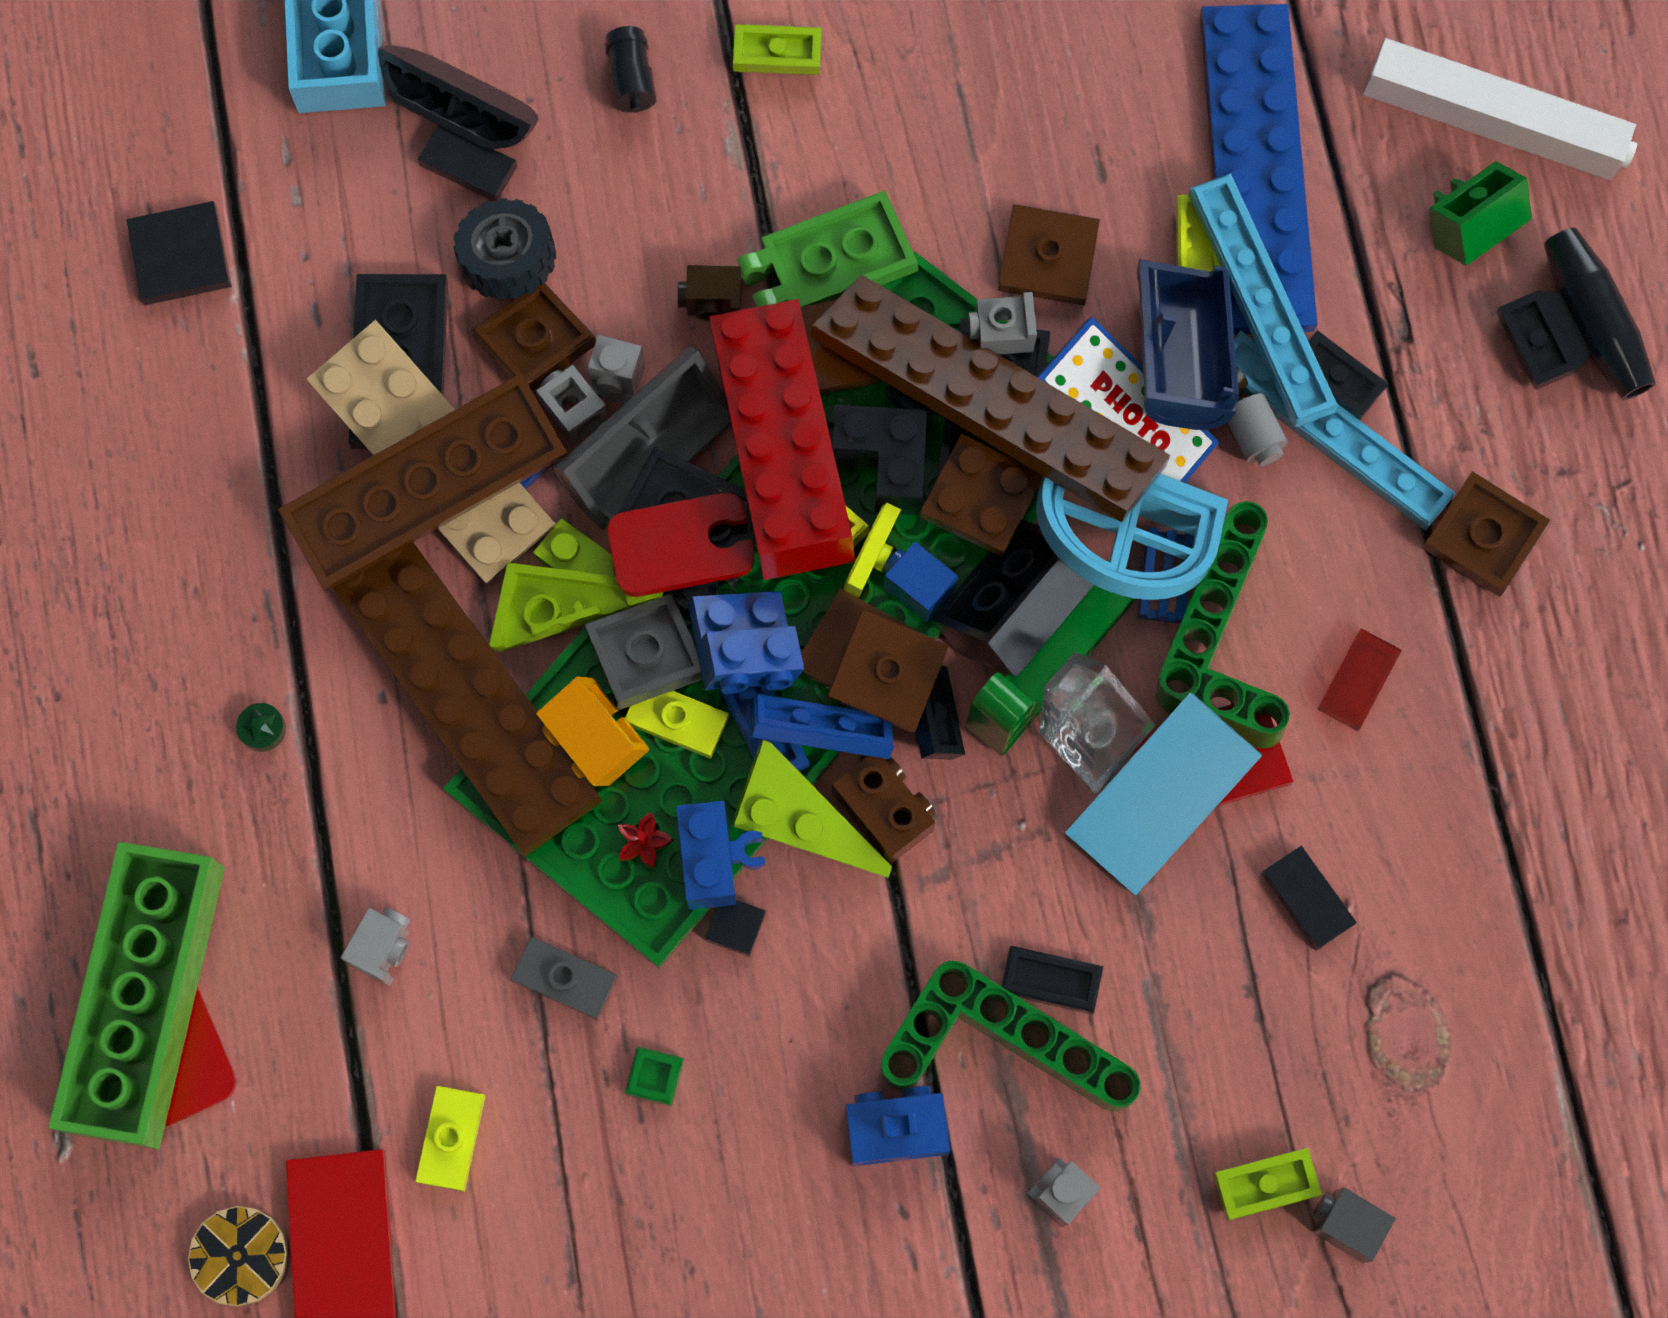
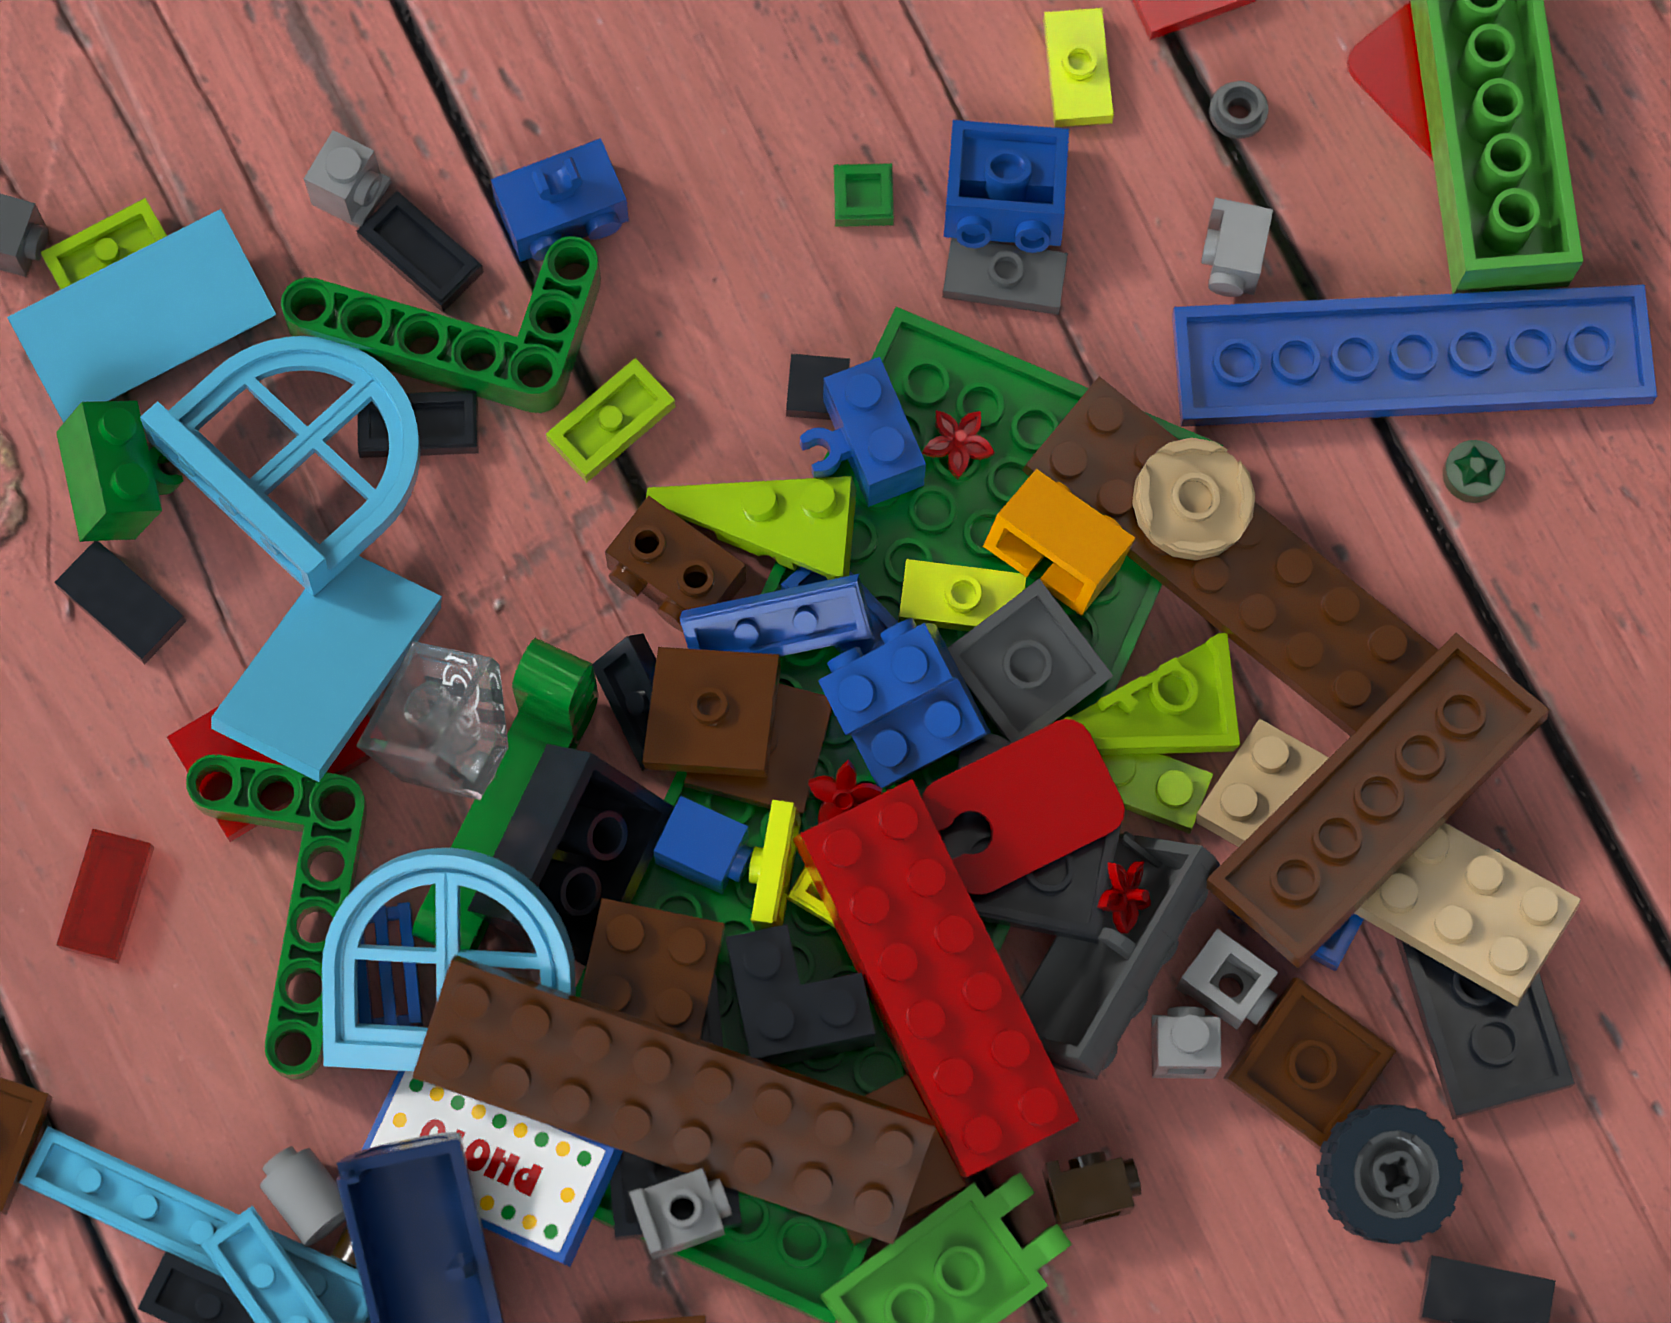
camera: 165 degrees right, 0 degrees up
(274, 825) = (1413, 355): none -> blue plate
(322, 1058) = (1244, 95): none -> dark grey plate
(482, 734) = (1193, 499): none -> tan tile
(539, 1046) = (1006, 185): none -> blue plate
(625, 474) = (1124, 897): none -> red plant
(808, 593) = (841, 793): none -> red plant
(902, 938) = (610, 420): none -> lime plate
(1018, 1123) = (419, 251): none -> black tile
(1201, 939) = (246, 499): none -> medium azure window
(1250, 1119) = (142, 315): none -> medium azure tile
(1297, 991) = (111, 471): none -> green brick

